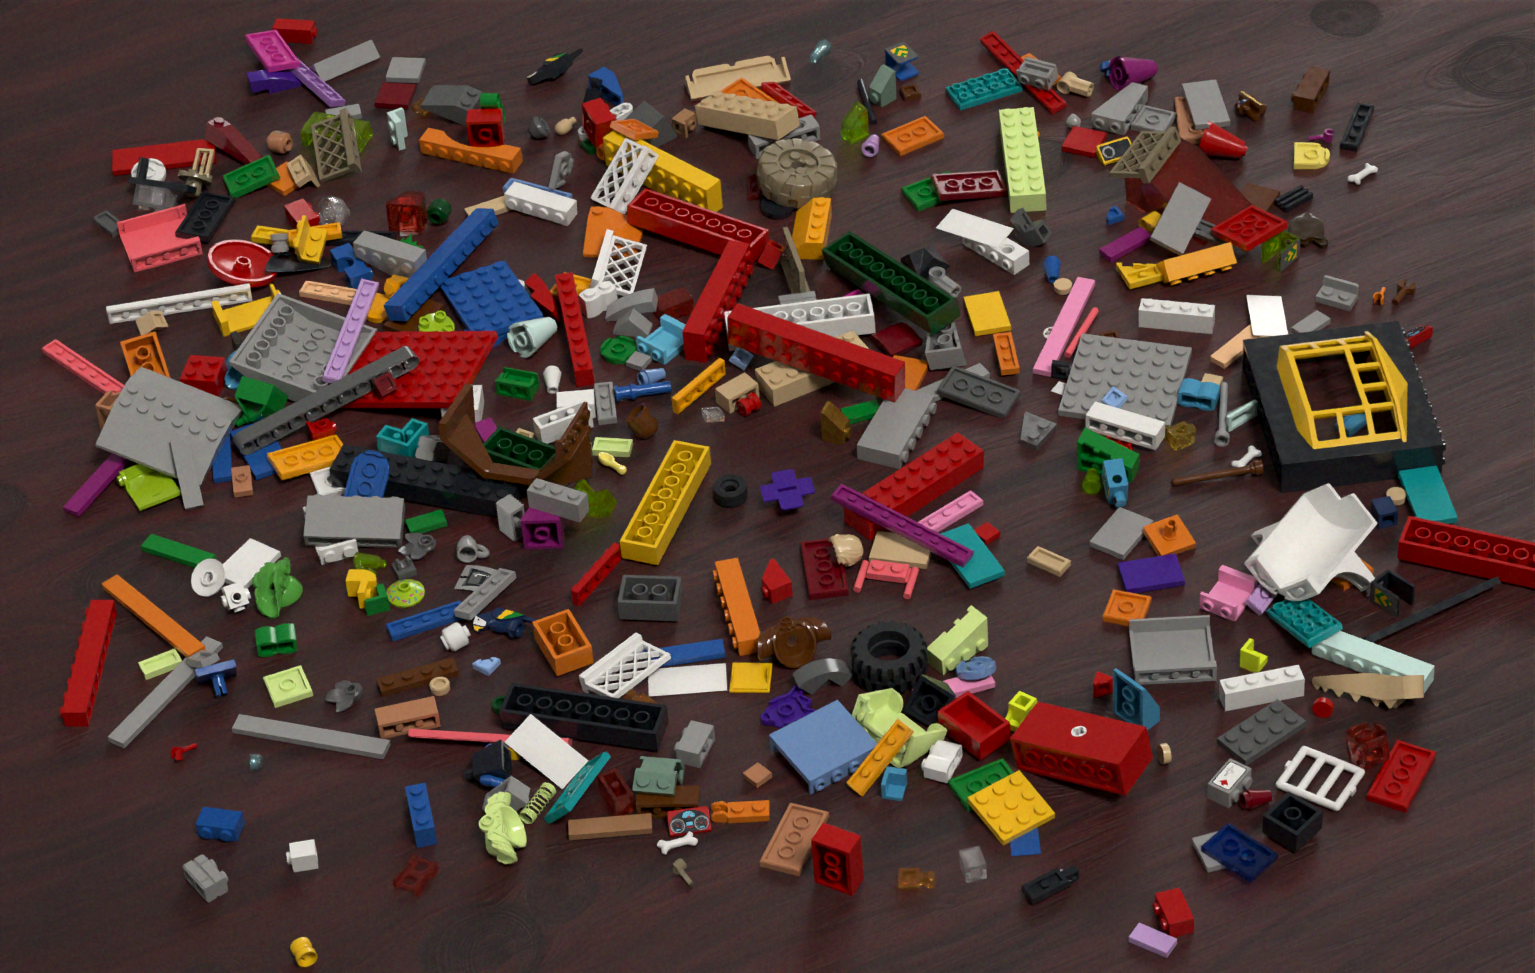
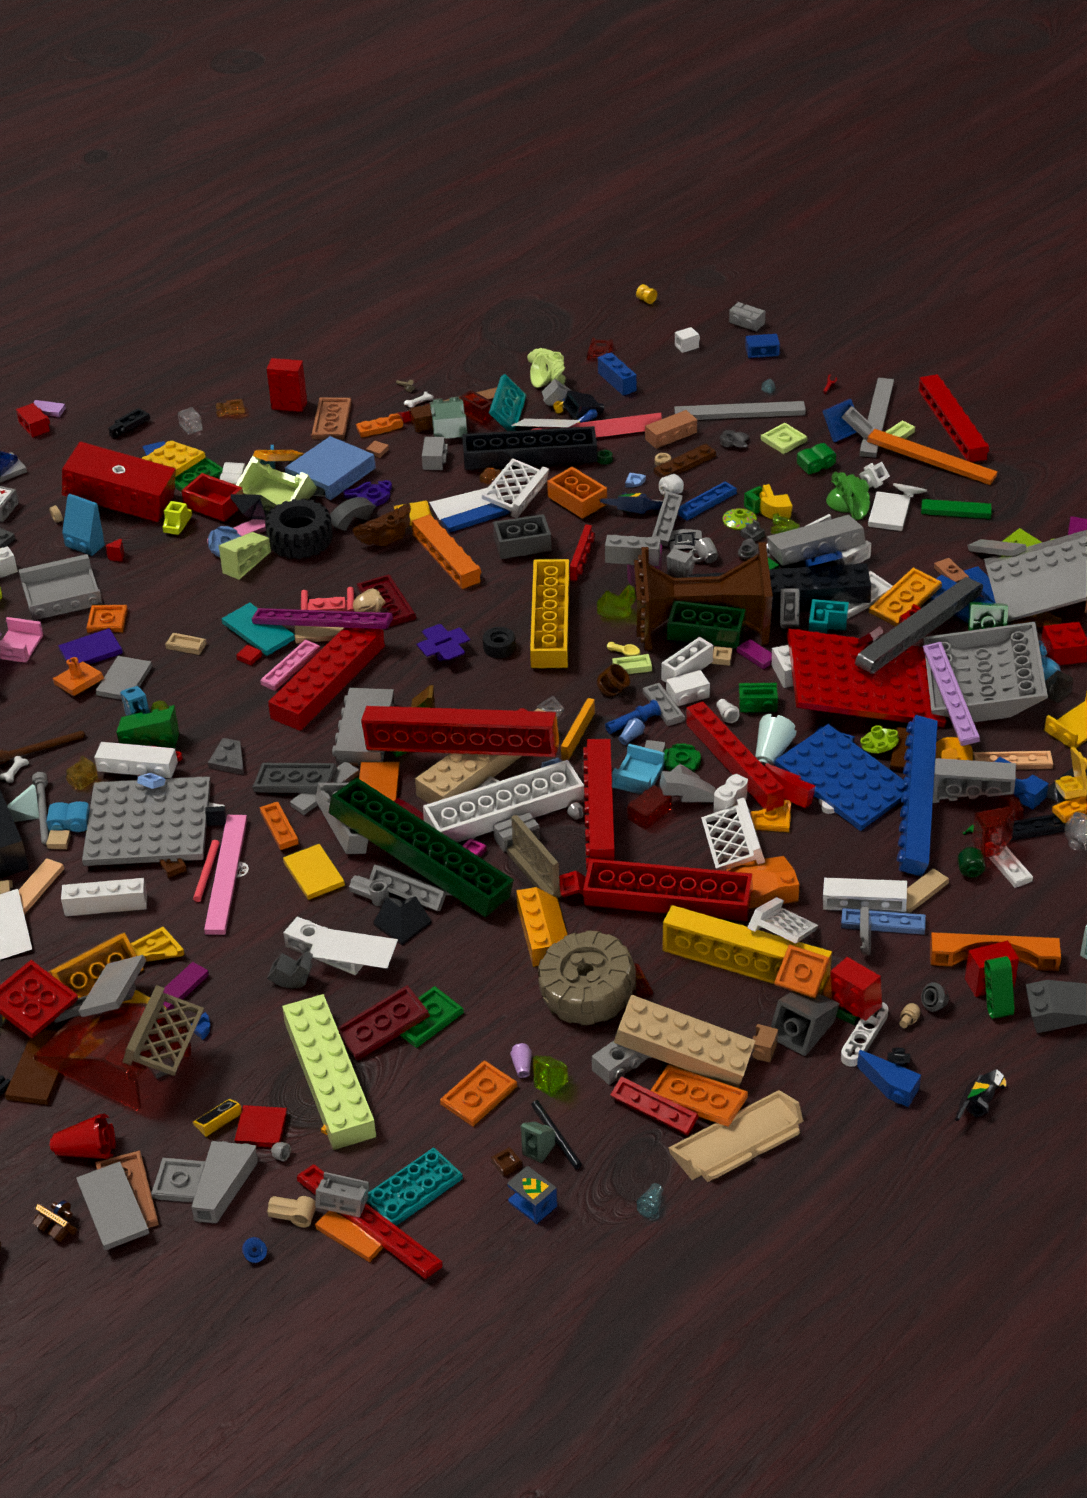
camera: 160 degrees right, 0 degrees up
(545, 794) = (534, 395): yellowish green piece -> none
(775, 583) = (420, 574): red slope -> none
(1052, 268) = (255, 934): blue cone -> none
(1062, 286) = (239, 920): tan tile -> none
(1128, 70) = (217, 1237): magenta cone -> none

